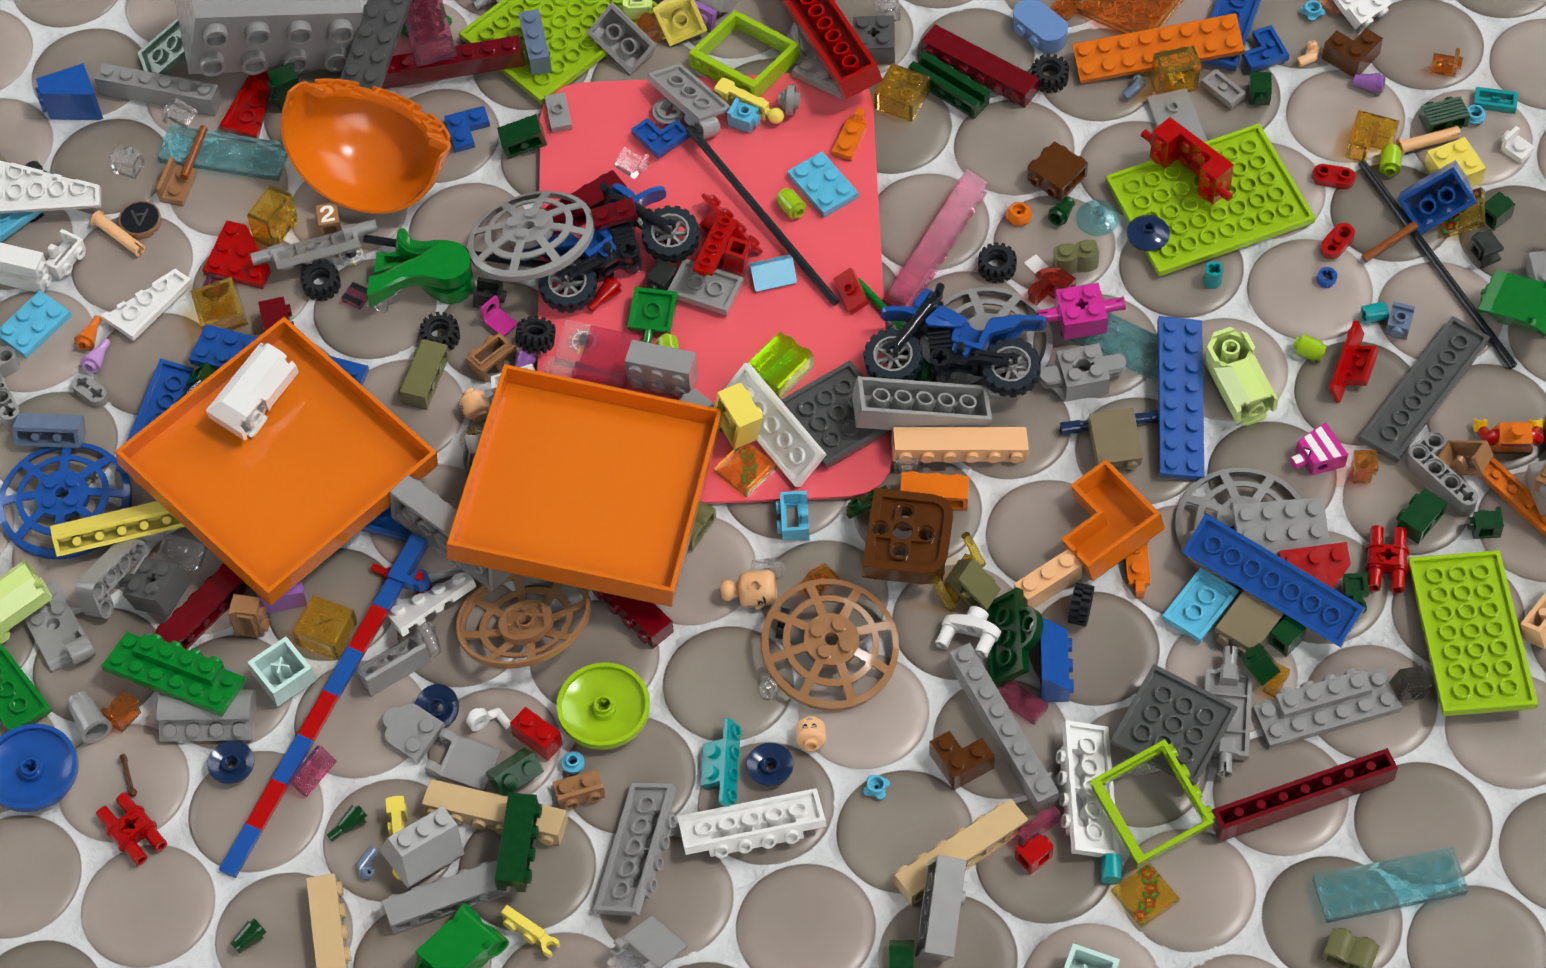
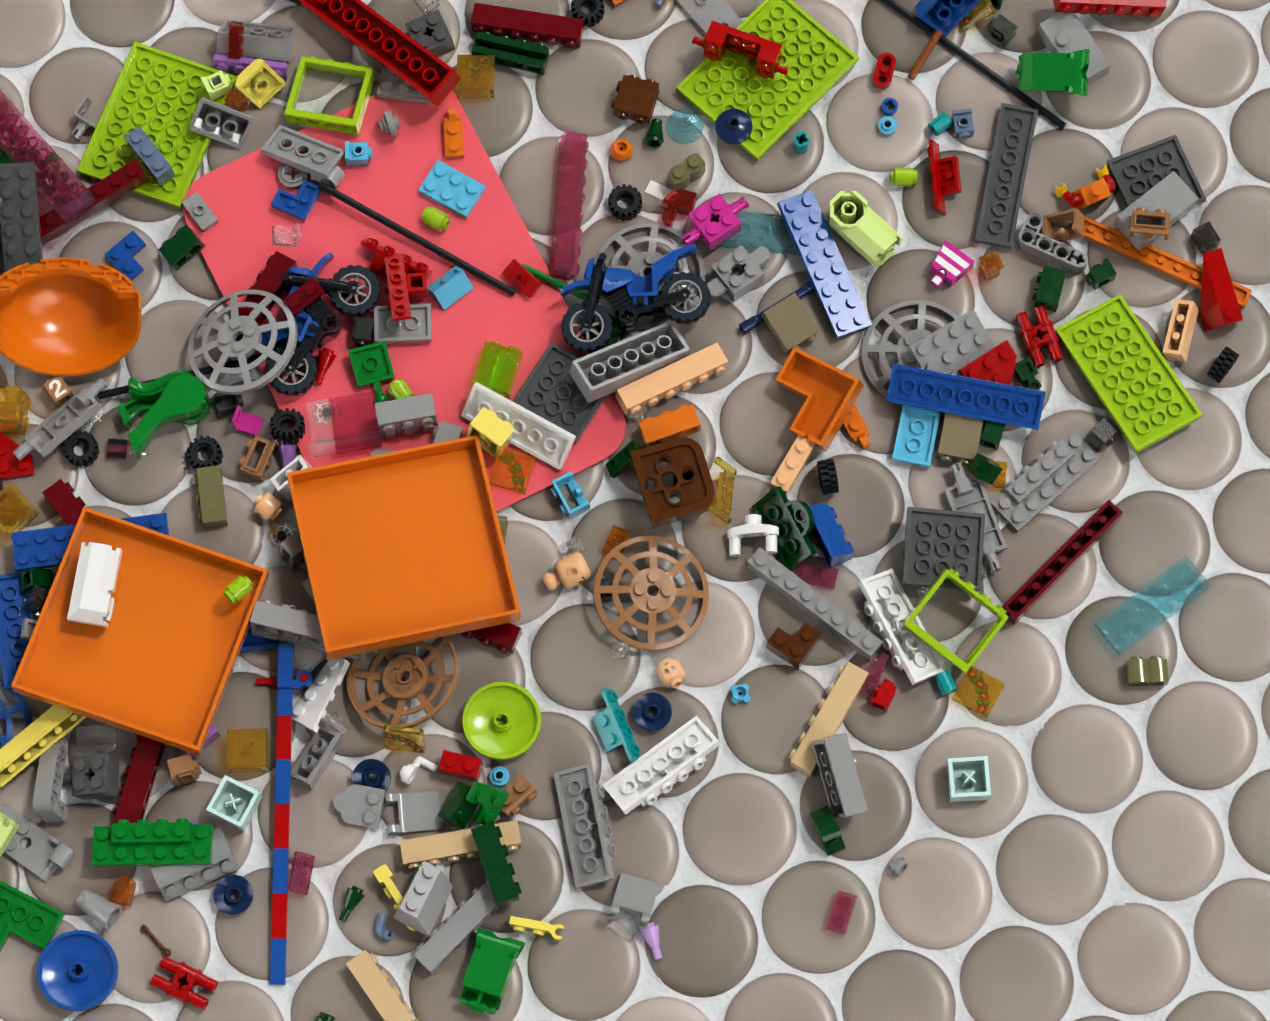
camera: 25 degrees left, 15 degrees up
(394, 454) = (238, 589): none -> lime brick
(490, 680) = (404, 739): none -> clear yellow tile
(548, 775) = (490, 800): none -> green plate
(728, 92) = (334, 137): light yellow plate -> none
(973, 583) = (738, 495): olive brick -> none
(1316, 298) = (887, 130): none -> medium azure plate
(1333, 176) = (856, 11): red plate -> none

